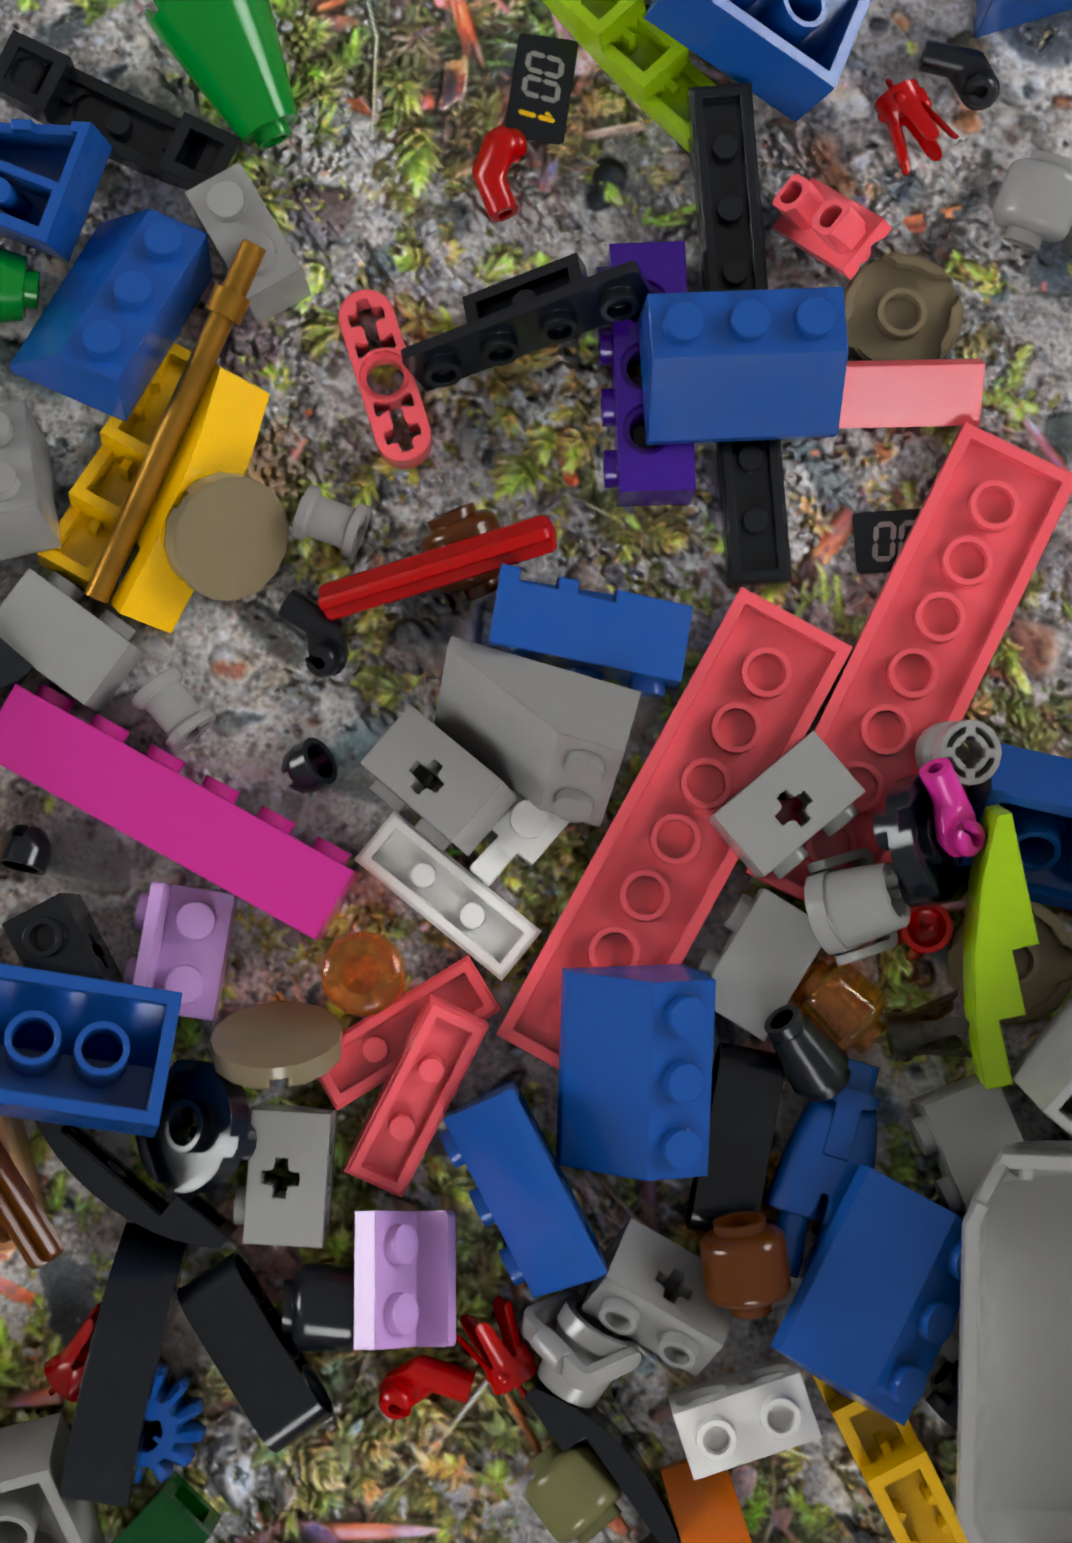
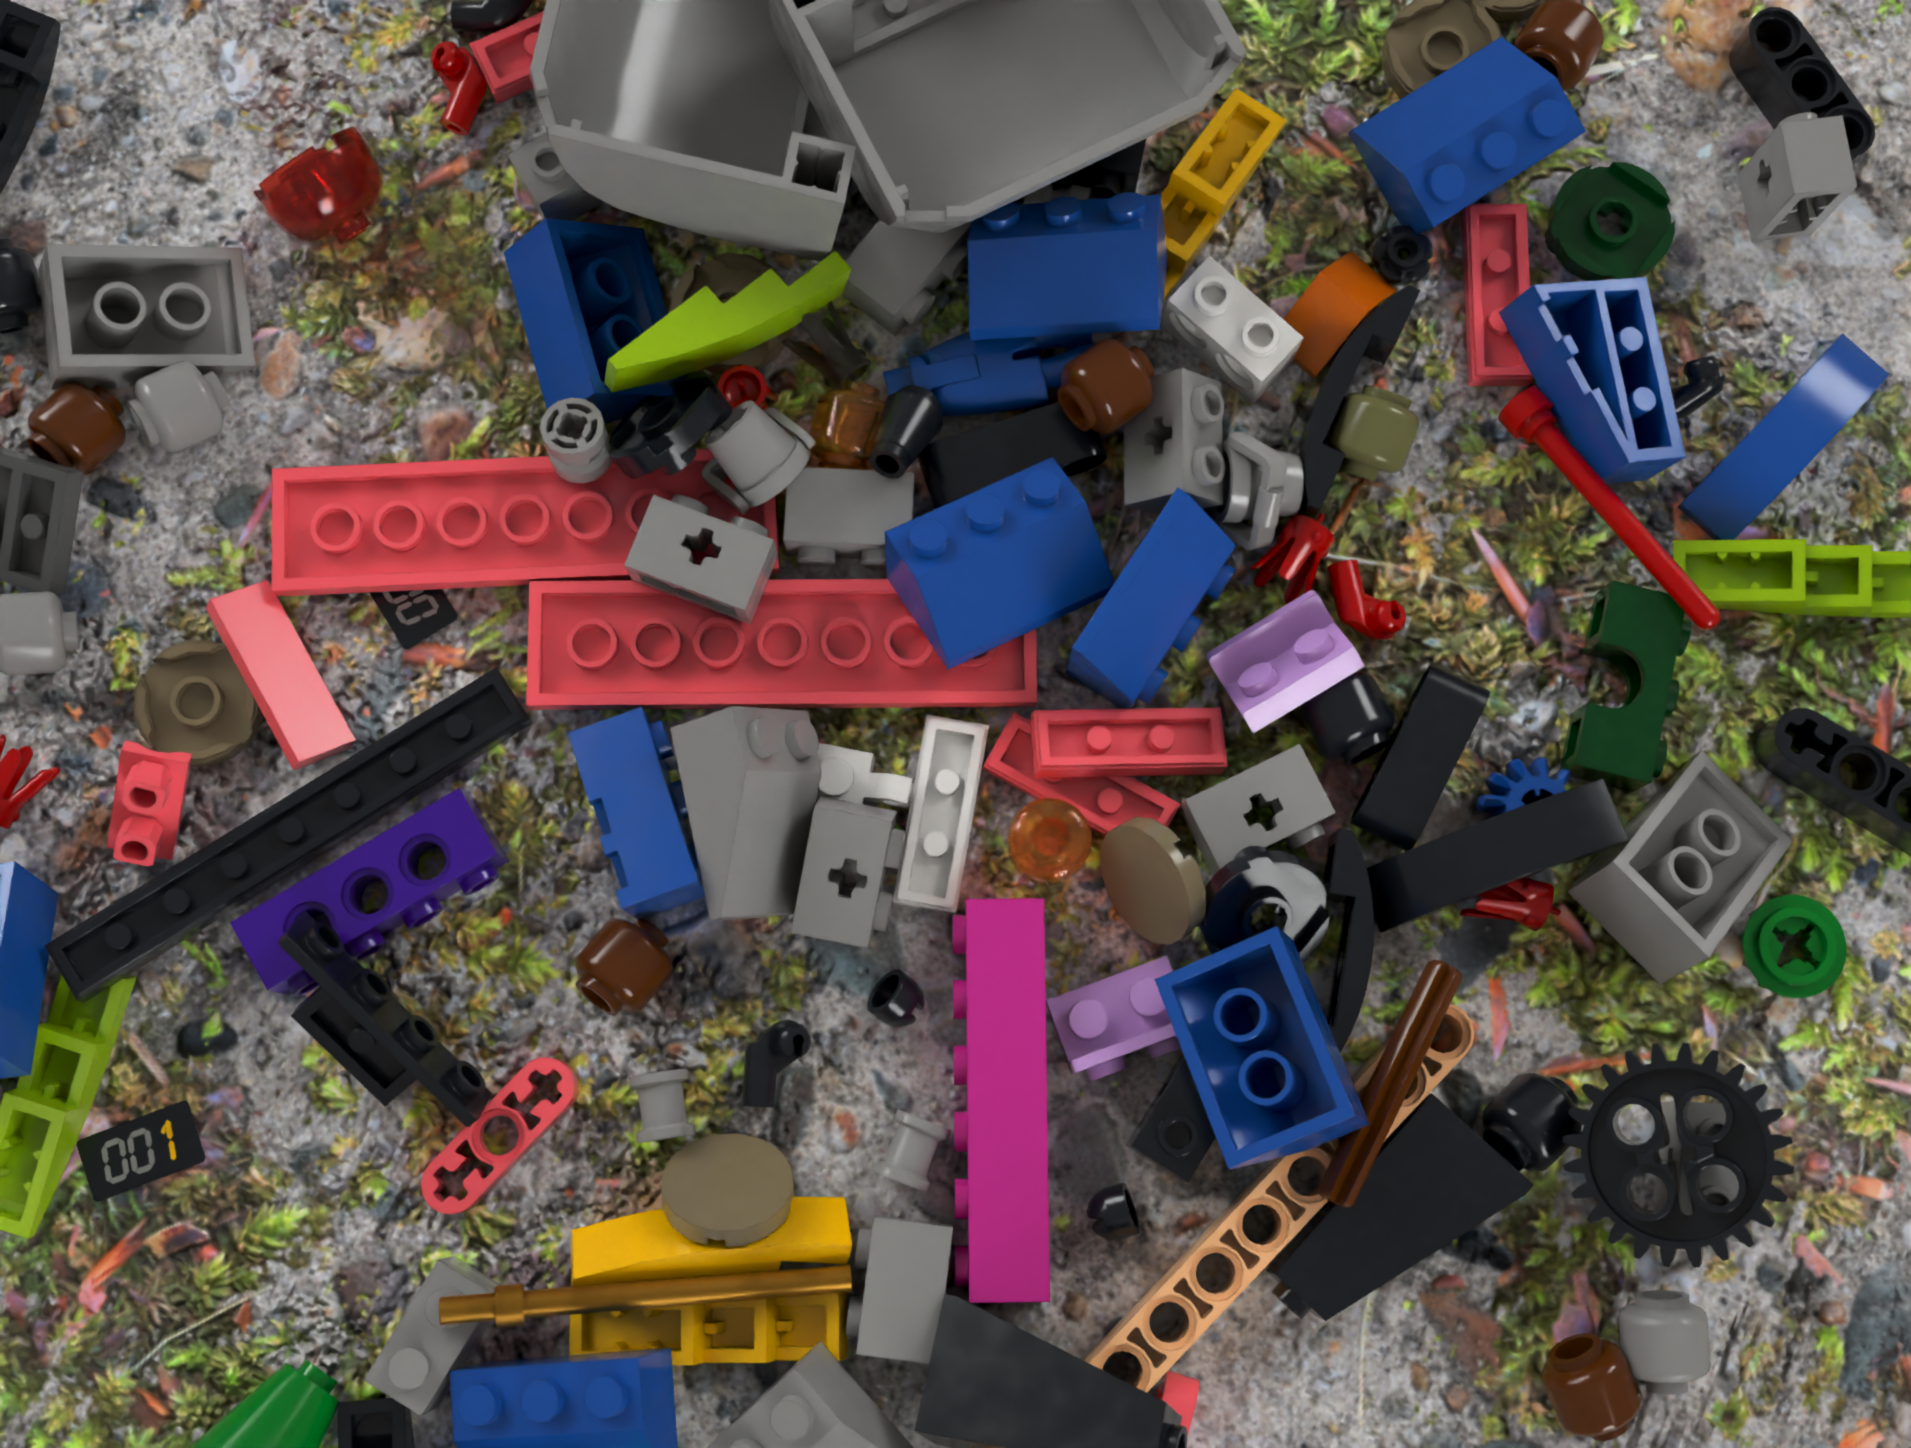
camera: 120 degrees left, 5 degrees down
(438, 567) = (654, 974): red axle -> none
(497, 153) = (244, 1150): red arm -> none
(743, 364) = (324, 802): blue slope -> none
(953, 814) = (632, 413): dark pink arm -> none

